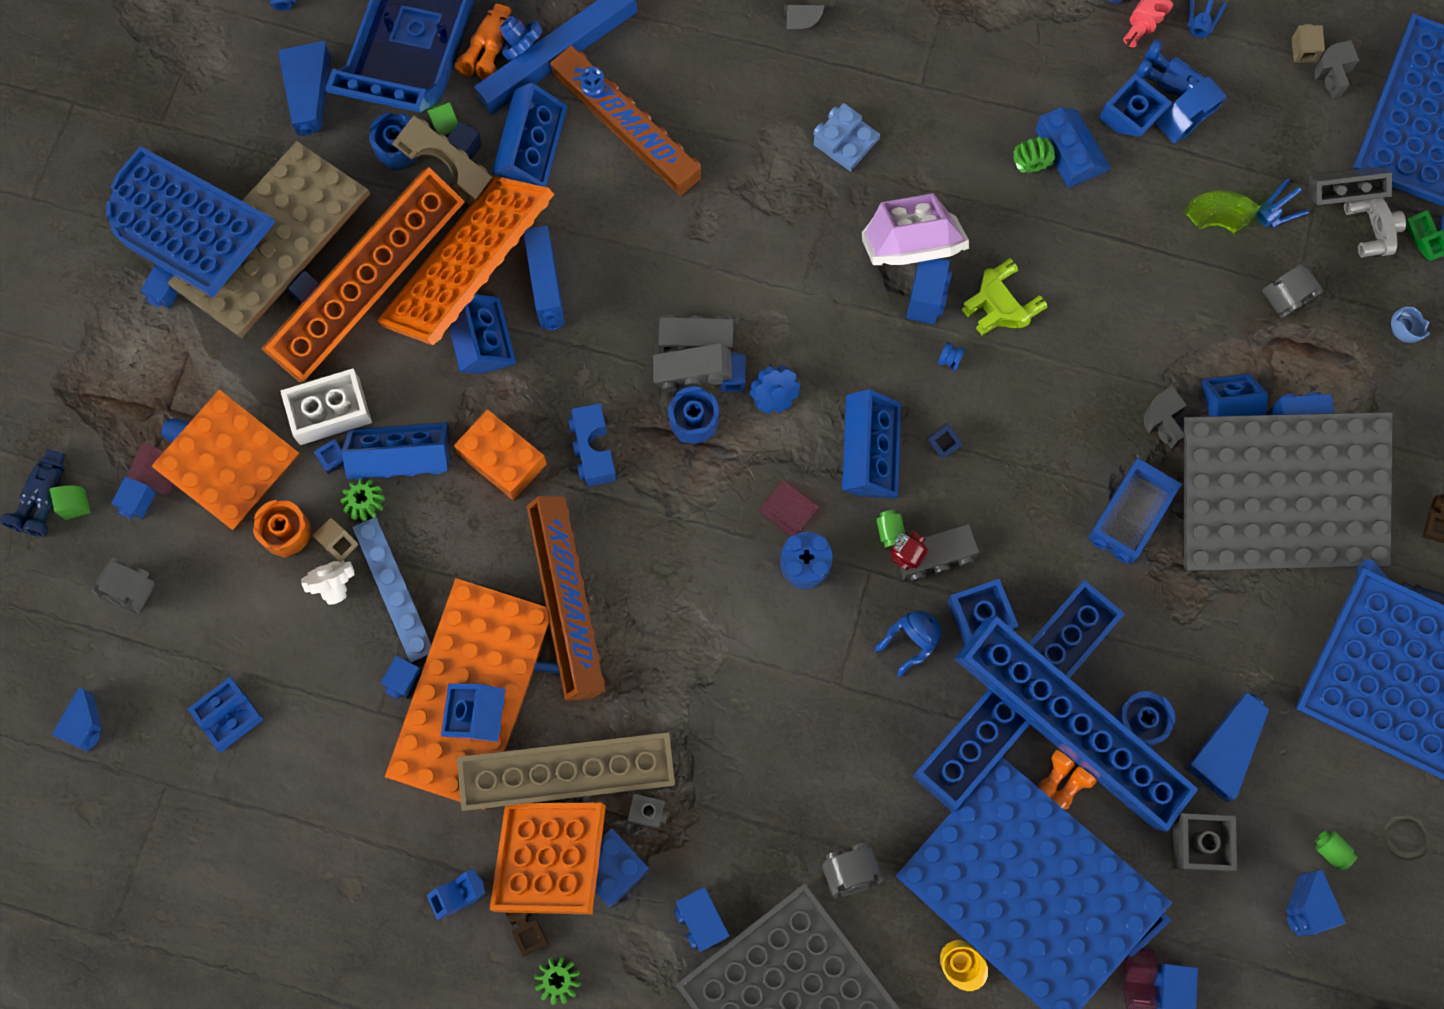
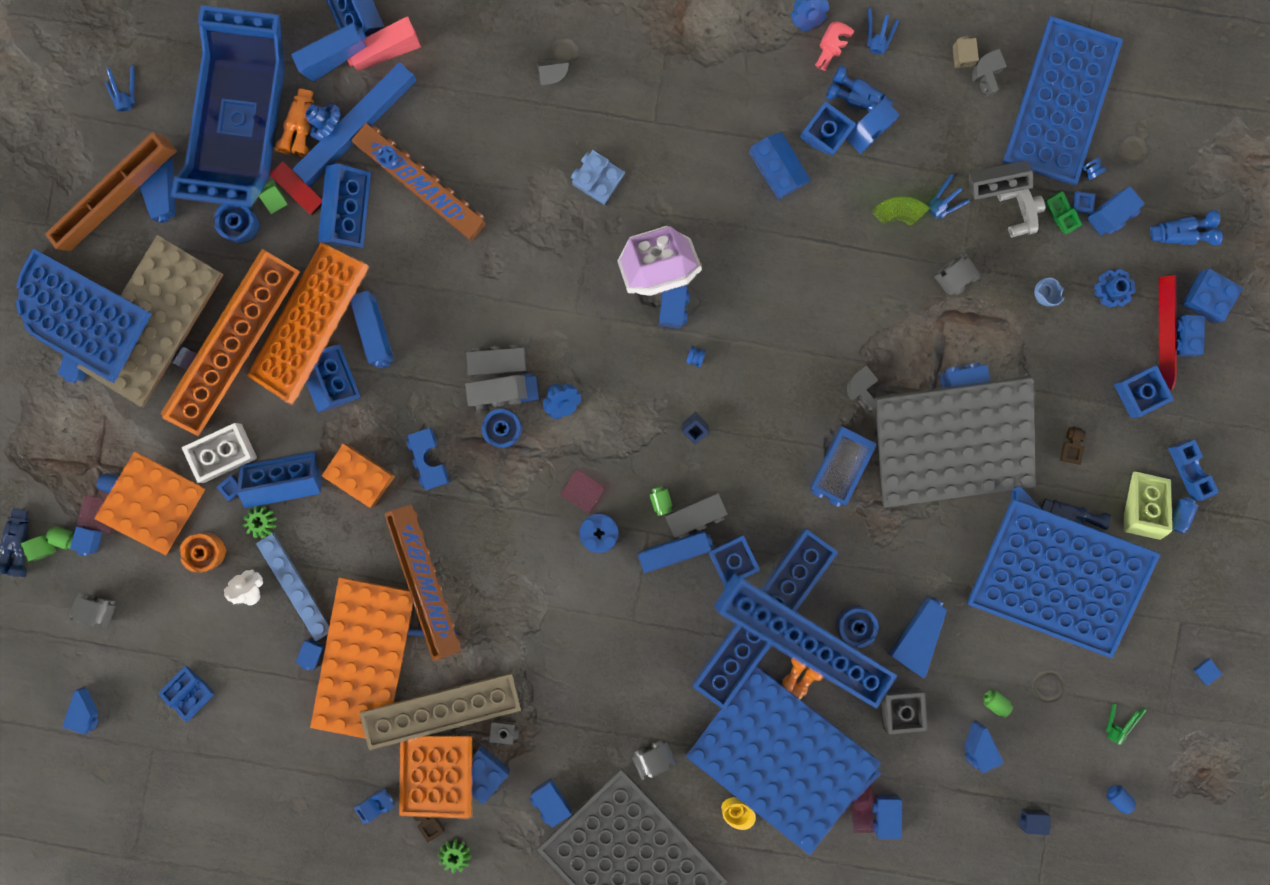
camera: 10 degrees left, 15 degrees up
(100, 492) = (60, 537): none -> bright green brick
(249, 87) = (111, 192): none -> dark orange brick
(335, 540) = (244, 556): dark tan brick -> none
(420, 139) = (299, 250): dark tan arch -> none
(465, 138) = (291, 217): dark blue brick -> none
(473, 712) = (366, 679): blue slope -> none
(474, 113) = (296, 188): none -> red tile
(871, 445) = (640, 435): blue slope -> none
(905, 591) = (675, 551): none -> blue piece
(908, 550) = (674, 522): dark red head -> none
(922, 629) = (688, 578): blue hair -> none
(999, 303) = (730, 307): lime connector -> none
(1034, 155) = (748, 179): bright green gear -> none
(1234, 396) = (915, 368): blue slope -> none

